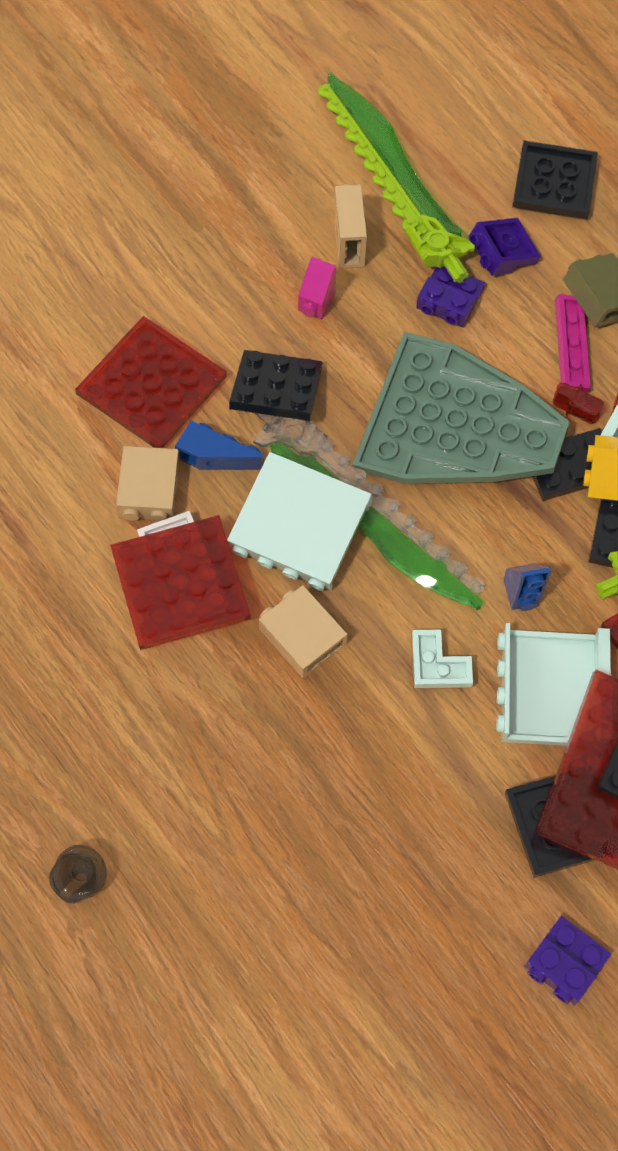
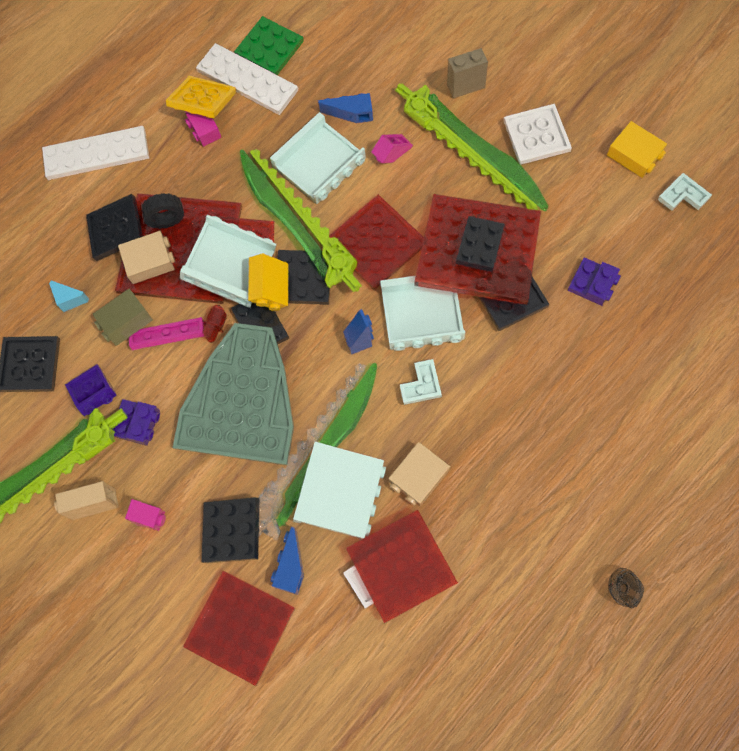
camera: 90 degrees left, 5 degrees up
(148, 483) = (326, 608): tan brick -> none

